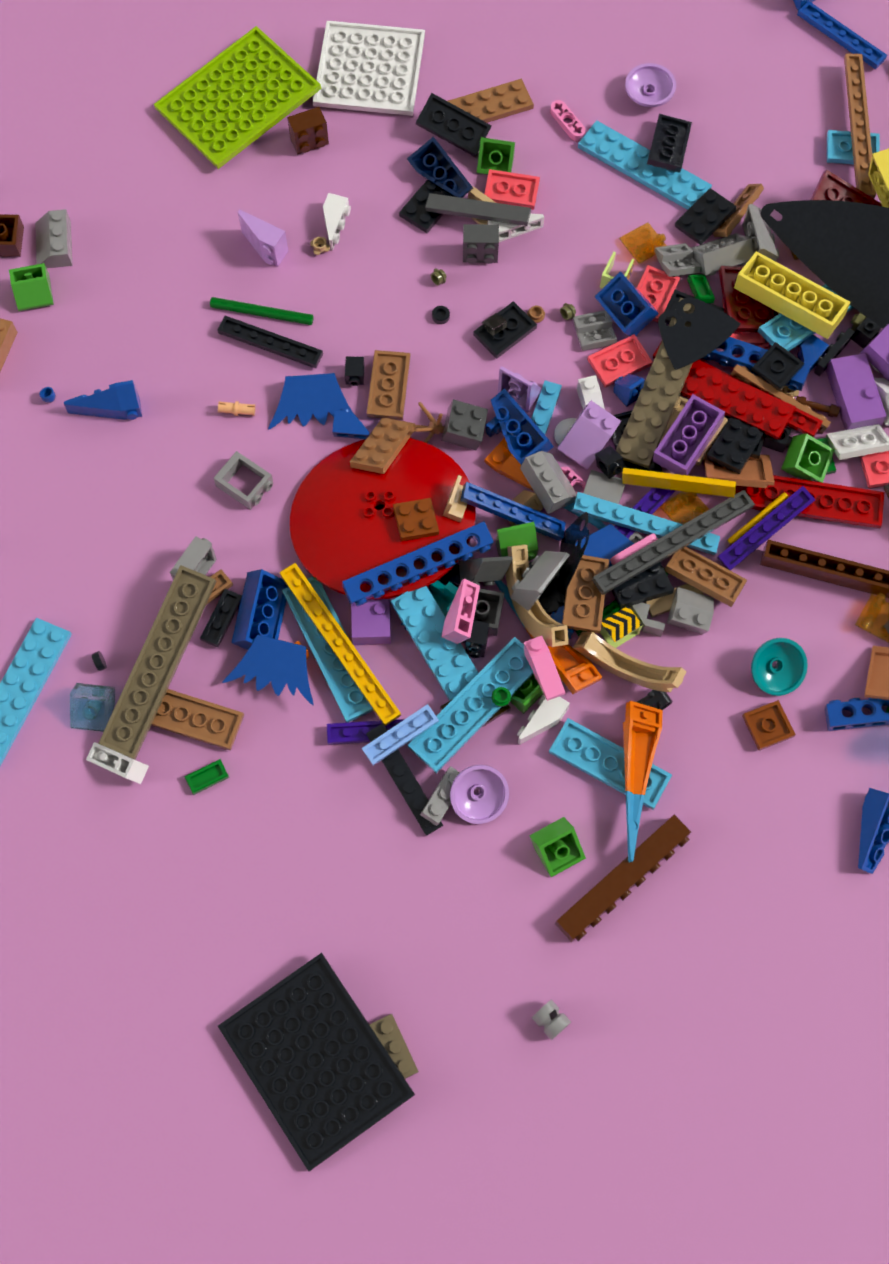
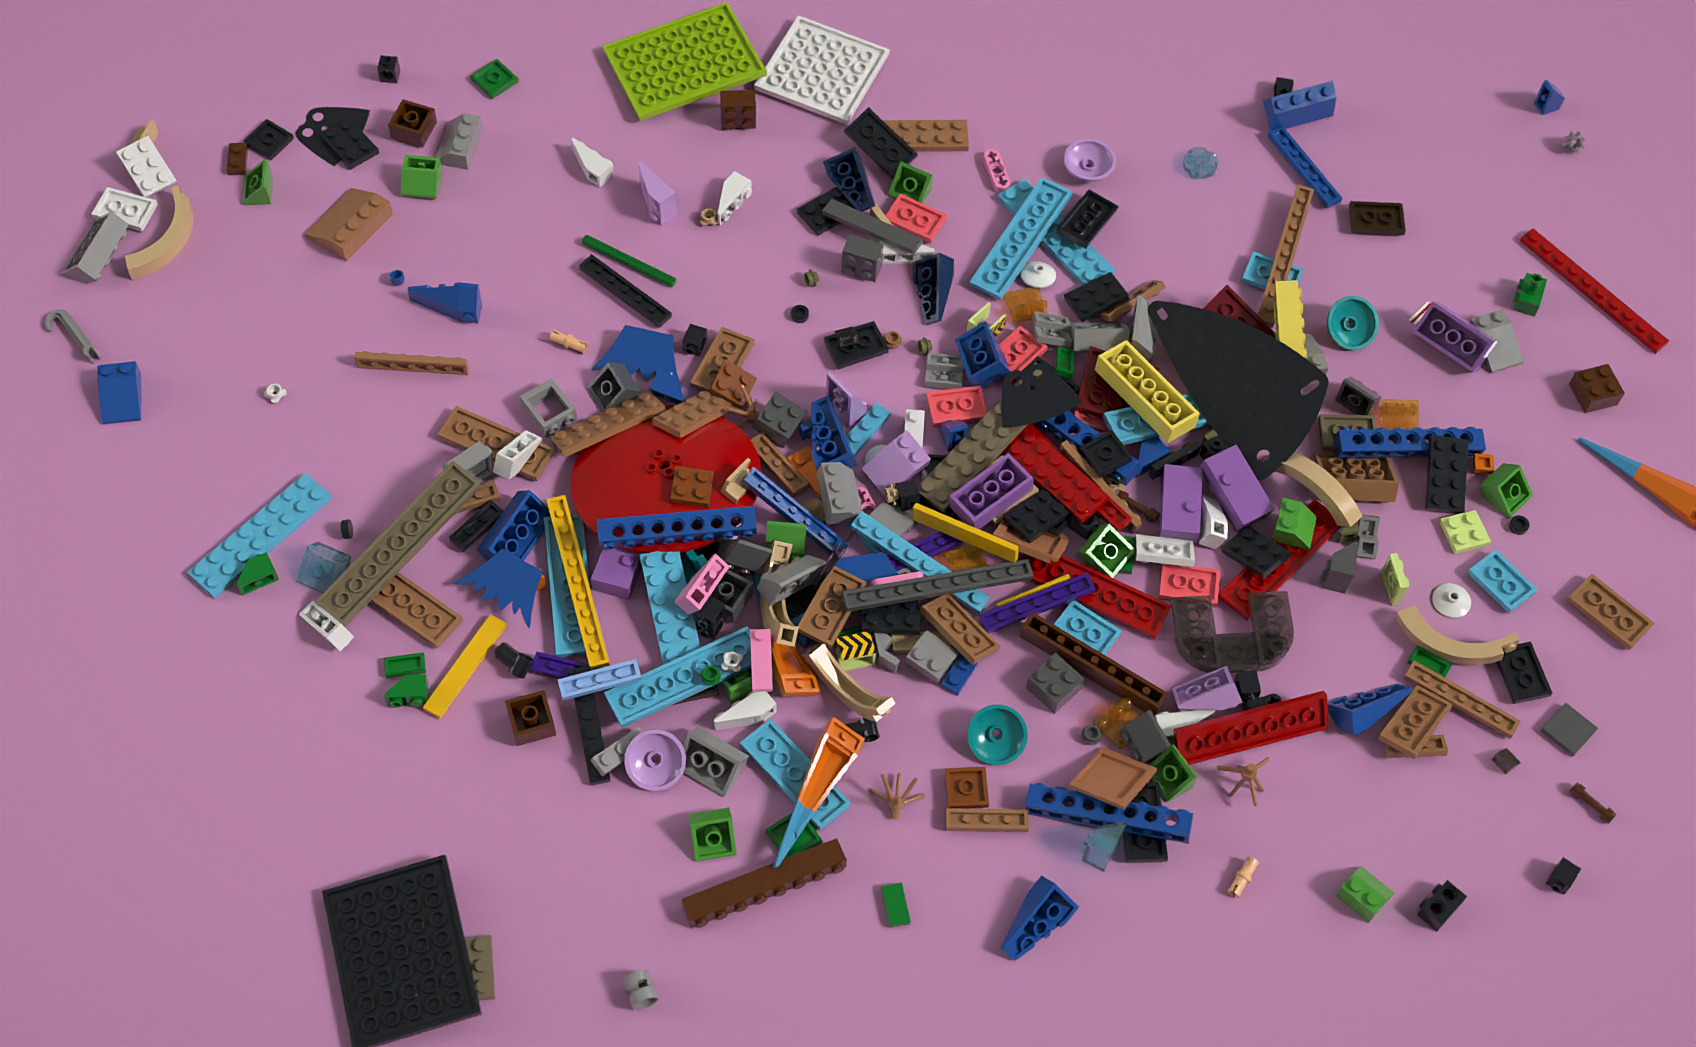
camera: 15 degrees right, 10 degrees down
(30, 733) = (256, 574): none -> green slope
(62, 167) = (494, 78): none -> green tile
(96, 476) = (411, 363): none -> medium nougat plate
(193, 227) = (594, 166): none -> white slope
(221, 802) = (409, 691): none -> green slope
(224, 531) = (467, 428): none -> medium nougat plate
(233, 537) = (515, 454): none -> white slope
(264, 759) = (465, 666): none -> yellow tile
(297, 441) = (613, 386): none -> dark grey slope
(305, 479) = (607, 424): none -> medium nougat plate
(314, 740) = (516, 661): none -> black piece
(347, 791) = (530, 718): none -> reddish brown brick
(404, 403) = (728, 382): none -> dark orange plate
(480, 469) = (779, 465): none -> medium nougat plate
(510, 673) = (732, 656): none -> white plate
(531, 776) = (712, 761): none -> light grey slope
(553, 247) = (933, 280): none -> dark blue wedge
(595, 466) = (891, 495): none -> tan plate
(617, 180) = (1020, 238): none -> medium azure plate
(618, 823) = (807, 839): none -> green tile
(643, 210) = (1038, 274): none -> white dish
(712, 760) = (897, 802): none -> medium nougat plant
(720, 620) = (958, 675): none -> blue plate
(746, 66) = (1197, 170): none -> clear light blue plate
(747, 857) = (895, 905): none -> green tile
(798, 750) = (987, 820): none -> medium nougat plate
(810, 599) = (1055, 683): none -> dark grey brick
(818, 536) = (1088, 627): none -> medium azure plate
(859, 637) = (1091, 735): none -> dark grey plate

